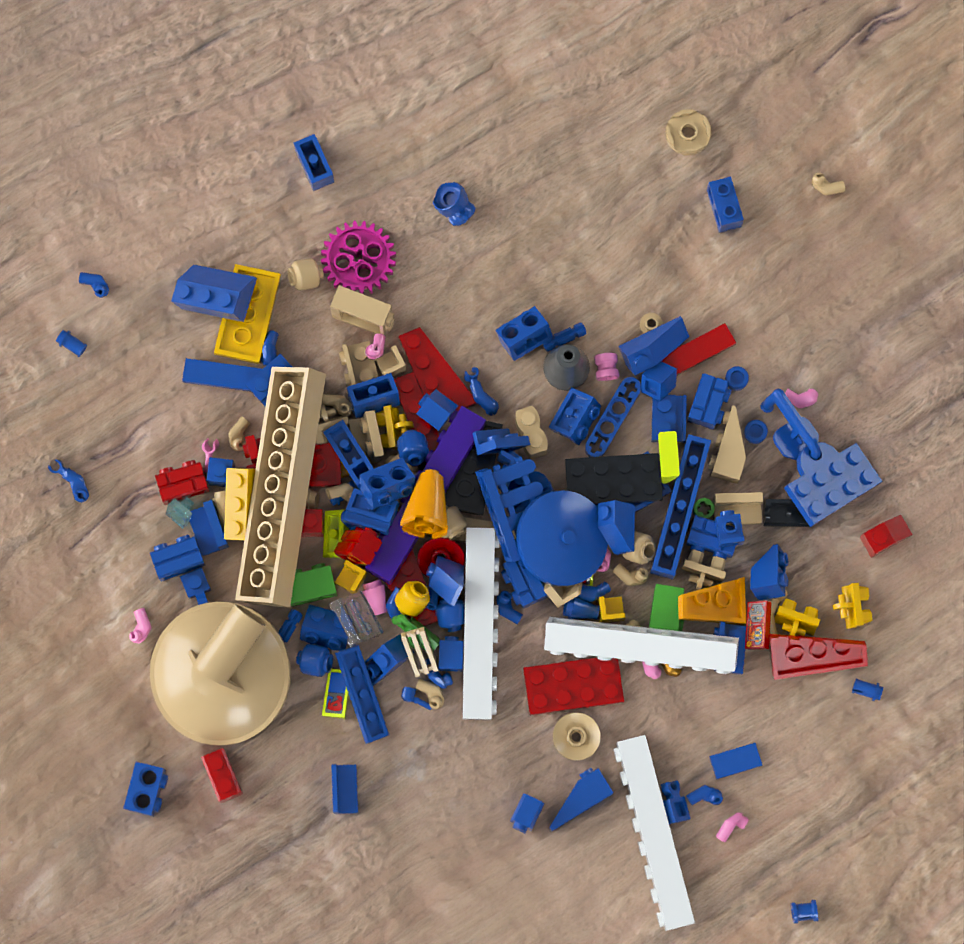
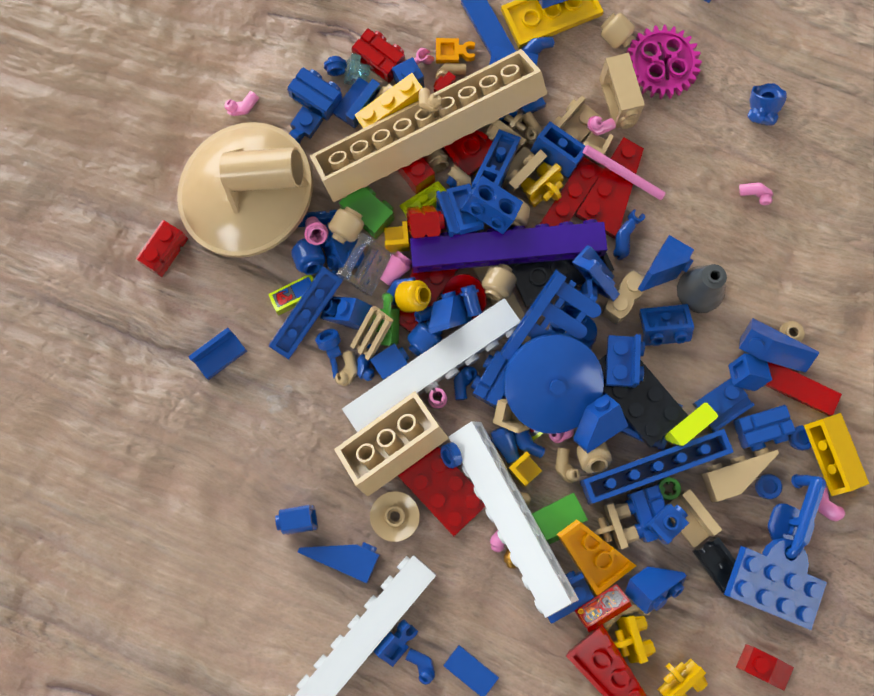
camera: 60 degrees right, 0 degrees up
(139, 787) = (110, 192): blue brick -> none
(164, 525) = (335, 66): none -> blue plate
(221, 421) = (450, 51): none -> light orange plate
(266, 474) = (428, 101): none -> tan arm
(302, 639) = (315, 231): none -> bright pink cone
(316, 610) = (346, 225): none -> tan head
(396, 691) = (328, 339): none -> blue tile
(413, 447) = (539, 208): blue head -> none
(426, 507) = (495, 249): light orange cone -> none
(430, 358) = (623, 172): none -> bright pink bar
(436, 409) = (585, 205): blue brick -> none
(448, 554) = (471, 300): none -> blue pin
(506, 643) = (436, 404): none -> bright pink pin
(518, 263) = (758, 189): none -> bright pink arm
(519, 697) = (391, 444): none -> tan brick
(524, 333) = (704, 233): blue brick -> none
(529, 379) = (668, 263): none -> blue slope
(560, 657) = (451, 455): none -> blue tile
(565, 336) = (739, 277): blue axle -> none
(583, 471) = (623, 361): none -> blue bracket
(606, 366) = (727, 321): bright pink wheel -> none
(612, 417) = (688, 356): blue beam -> none
(767, 363) = (836, 454): none -> yellow brick

